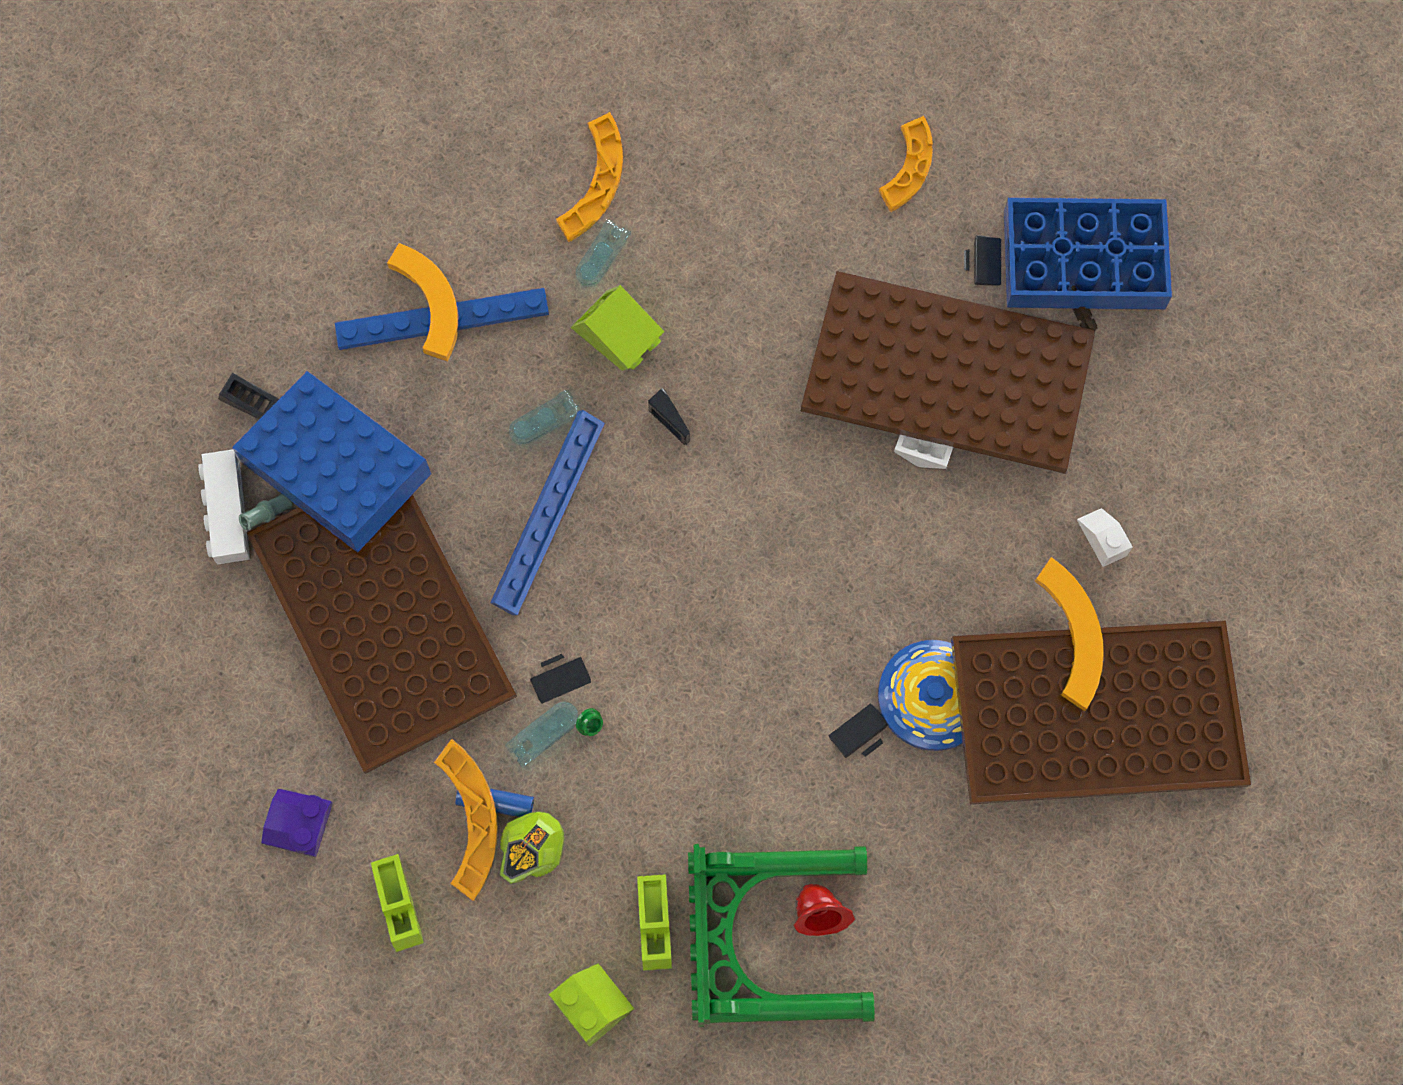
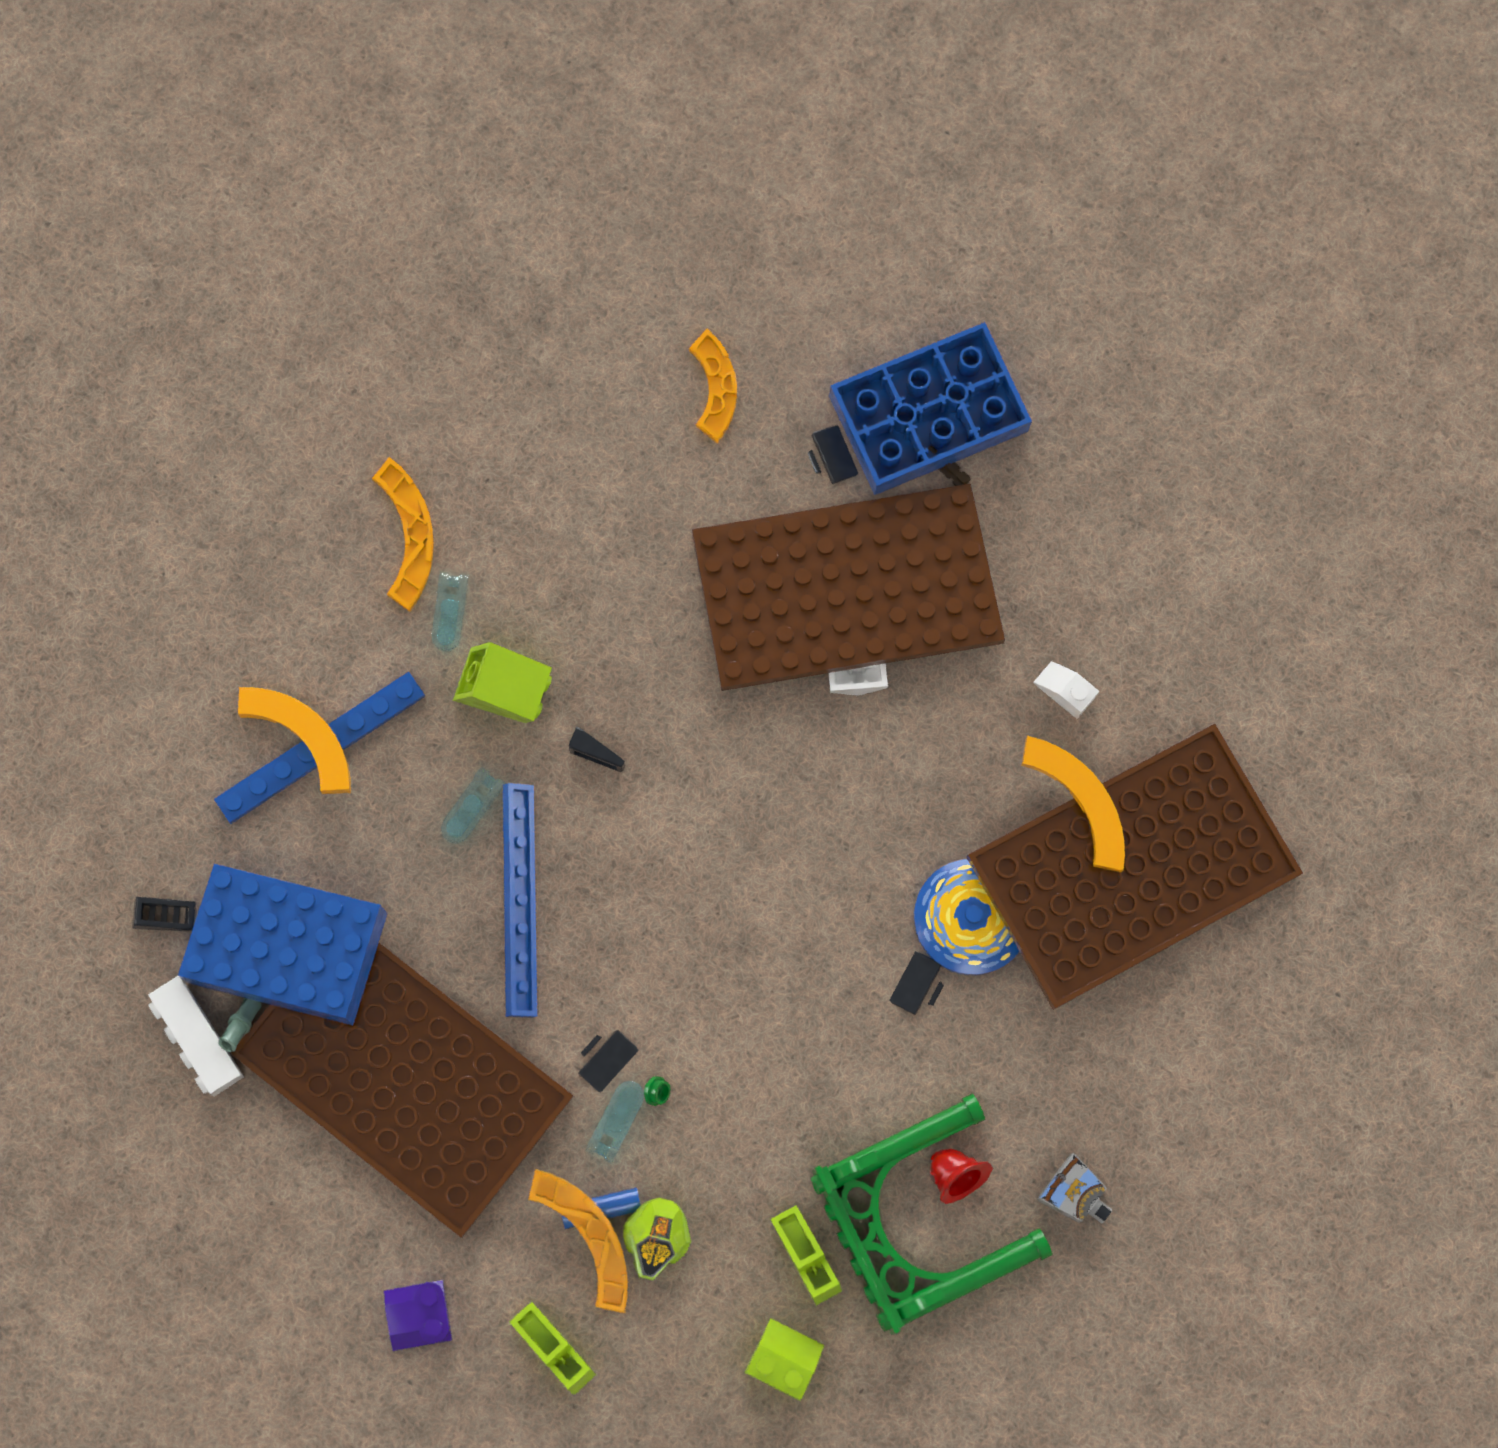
camera: 30 degrees left, 5 degrees up
(920, 975) = (1075, 1192): none -> torso

